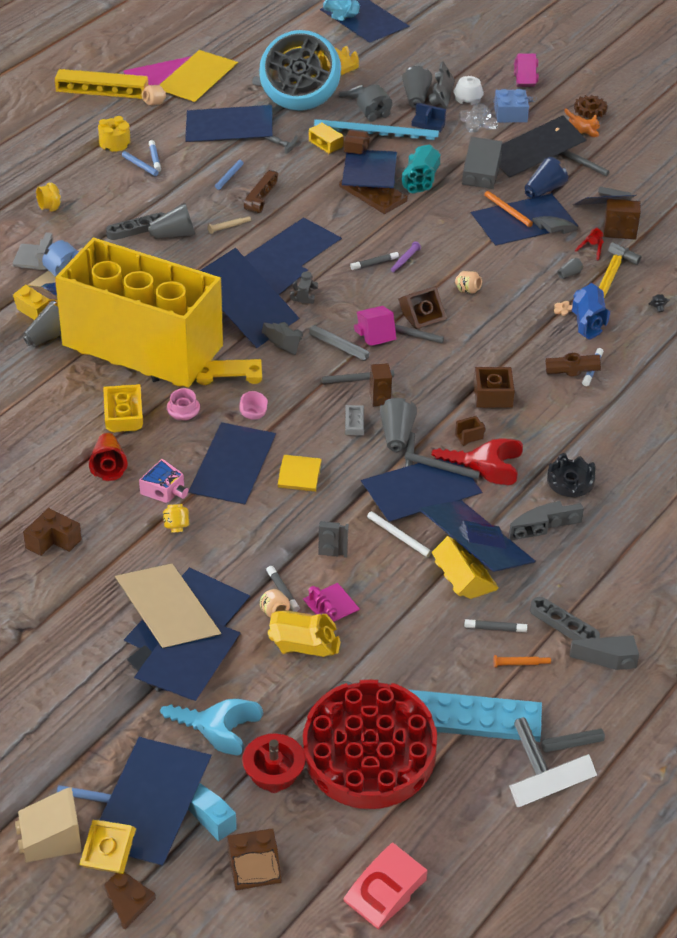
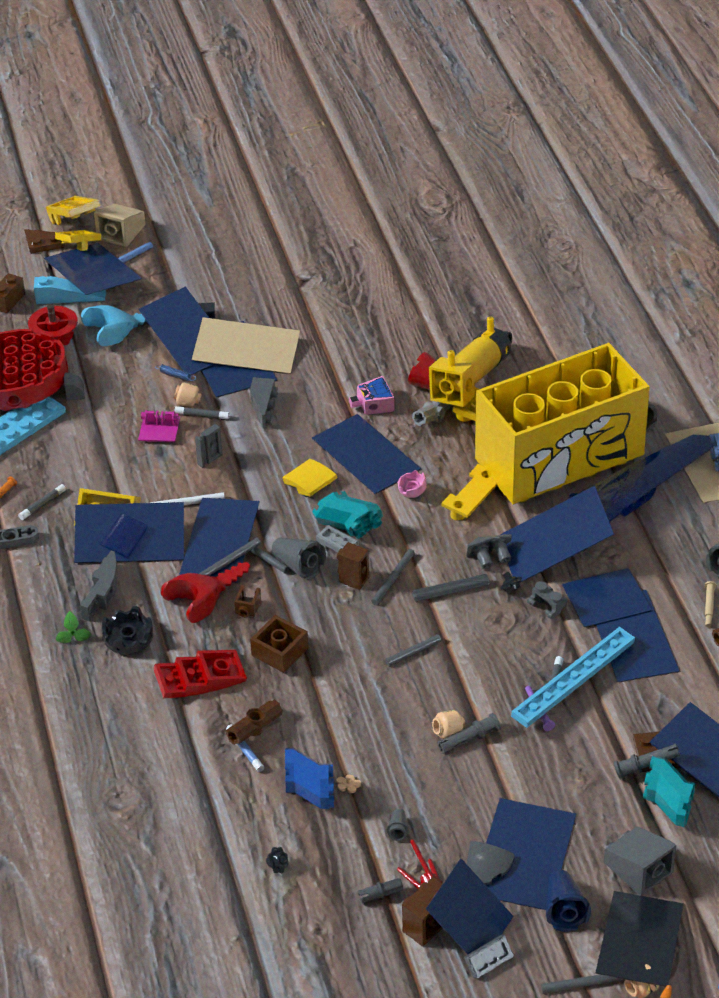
camera: 130 degrees right, 0 degrees up
(33, 299) = (681, 418): yellow slope -> none
(49, 429) = (455, 377): none -> yellow piece
(52, 529) = (378, 321): reddish brown brick -> none
(71, 869) = (71, 207): none -> yellow hinge
(149, 437) = (430, 412): none -> light grey piece
(176, 517) = (325, 382): yellow head -> none
(183, 404) = (454, 444): bright pink piece -> none
(231, 552) = (262, 398): none -> dark grey slope
(246, 640) = (175, 372): none -> medium blue piece
(304, 633) = (139, 388): yellow brick -> none
(306, 312) = (511, 582): none -> black plant
(329, 414) = (348, 514): none -> teal brick
(367, 245) = (572, 677): none -> medium azure plate
(376, 325) = (443, 614): dark pink plate -> none
(411, 192) = (637, 763): none -> dark grey pin
(423, 307) = (442, 667): reddish brown slope -> none
(456, 268) = (477, 730): none -> dark grey pin
(509, 209) = (549, 844): orange bar -> none
(560, 421) = (200, 674): none -> red slope
(603, 506) = (71, 623): none -> bright green plant
(610, 273) = (358, 852): yellow axle -> none

